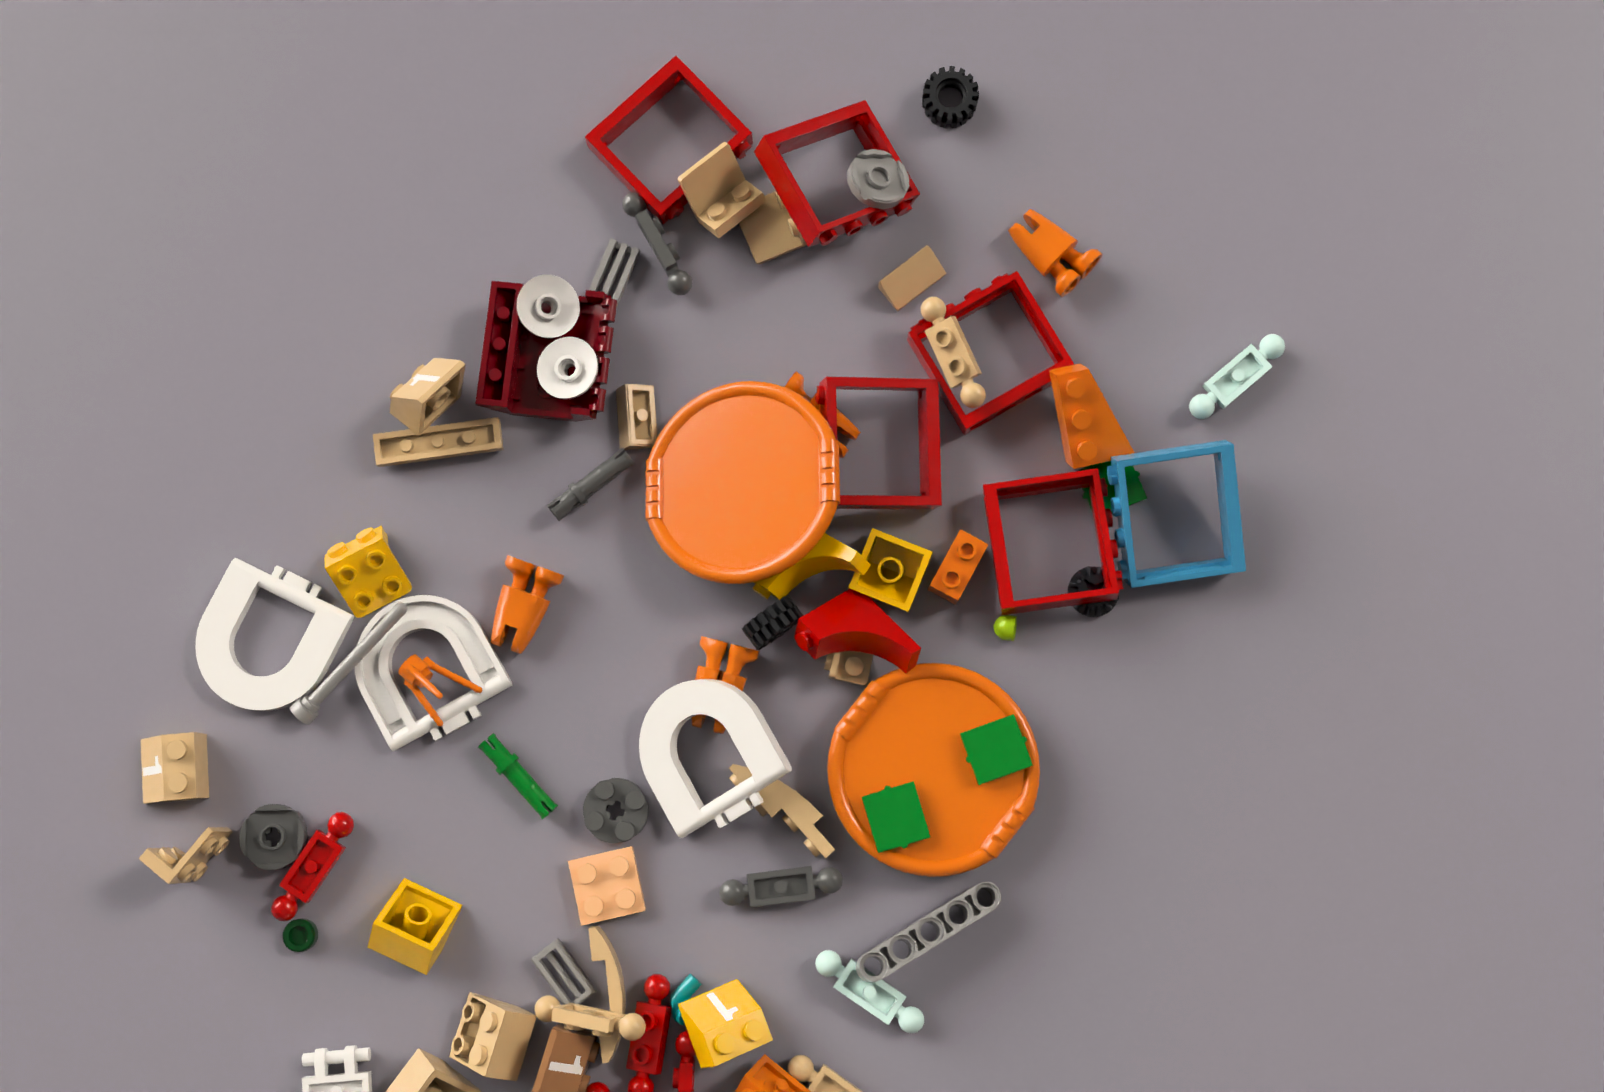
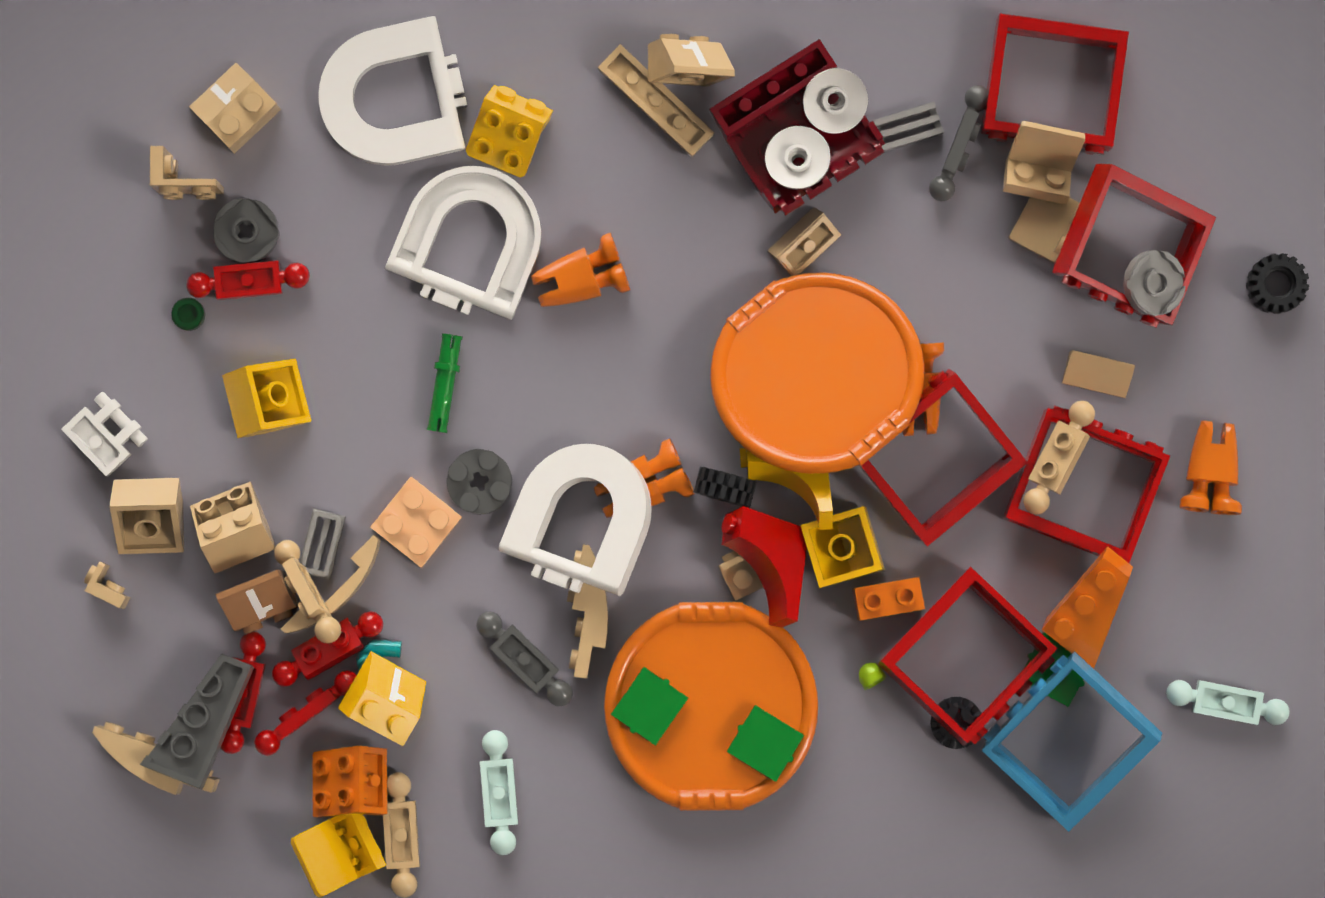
camera: 45 degrees right, 5 degrees up
(307, 708) = (364, 173): light grey piece -> none
(418, 674) = (460, 239): orange plant -> none
(590, 484) = (718, 250): dark grey pin -> none
(944, 929) = (595, 809): light grey beam -> none

